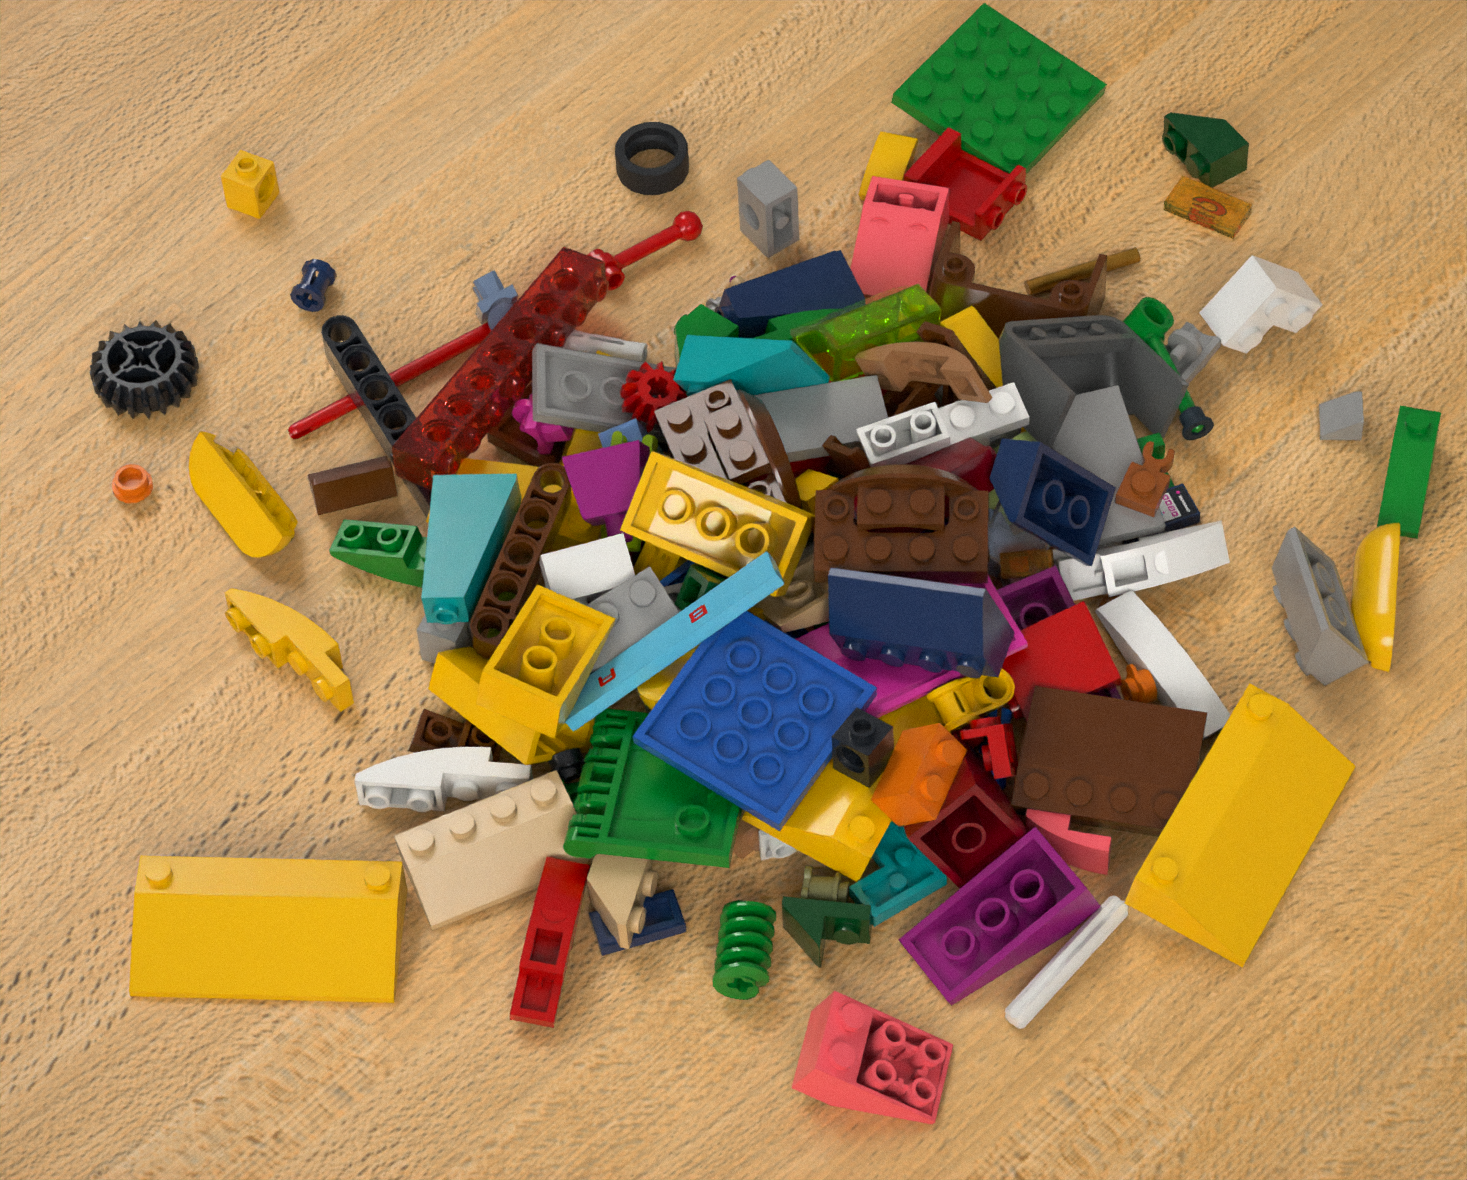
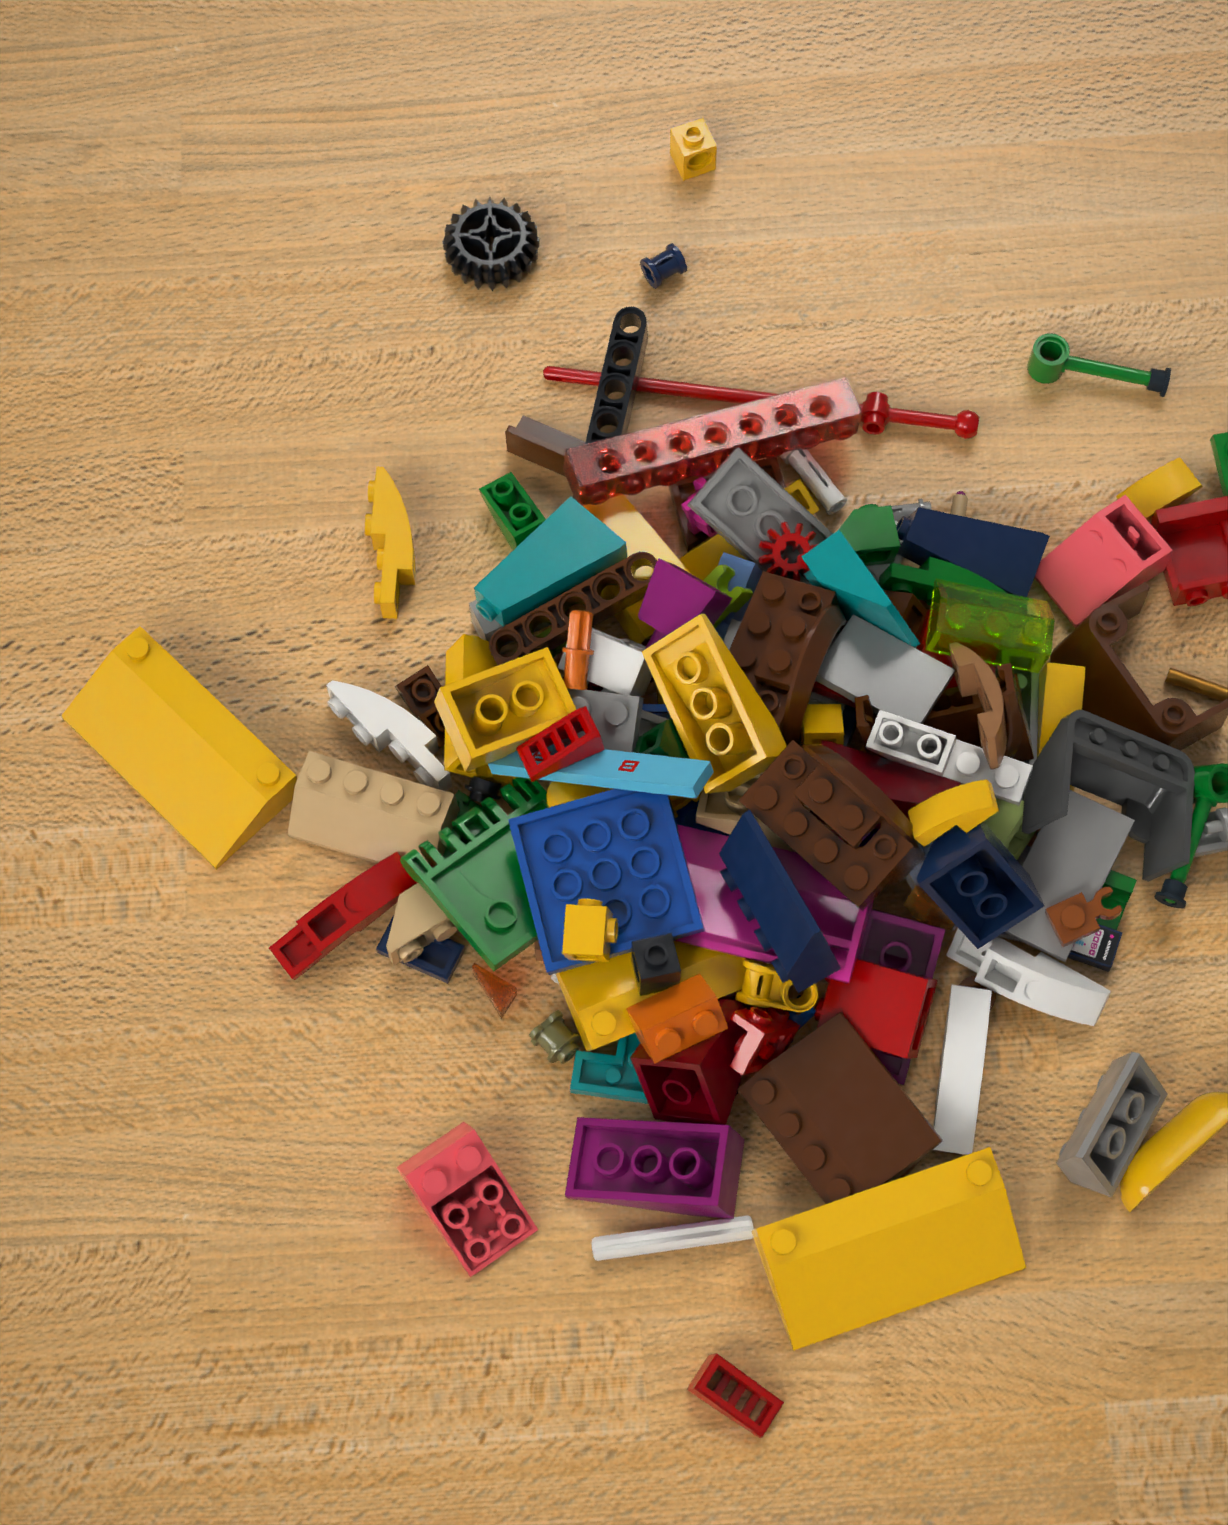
camera: 40 degrees right, 15 degrees up
(132, 484) = (405, 328): orange plate -> none
(240, 498) = (462, 398): yellow brick -> none
(493, 298) = (762, 379): sand blue hips -> none
(563, 567) = (578, 649): none -> orange axle
(628, 619) = (579, 749): none -> red slope
(652, 136) = (1001, 324): black tyre -> none
(707, 129) = (1058, 349): none -> green piece
(715, 898) = (497, 990): none -> clear orange piece
(743, 949) = (462, 1033): green piece -> none
(768, 208) = (1029, 458): light grey brick -> none
(789, 757) = (589, 931): none -> yellow brick
(816, 920) = (529, 1057): dark green slope -> none
(997, 433) = (960, 806): none -> yellow slope
(1076, 848) = (756, 1139): coral slope -> none
(1138, 685) = (926, 1070): orange plate -> none
(1204, 1034) = (744, 1382): none -> red slope

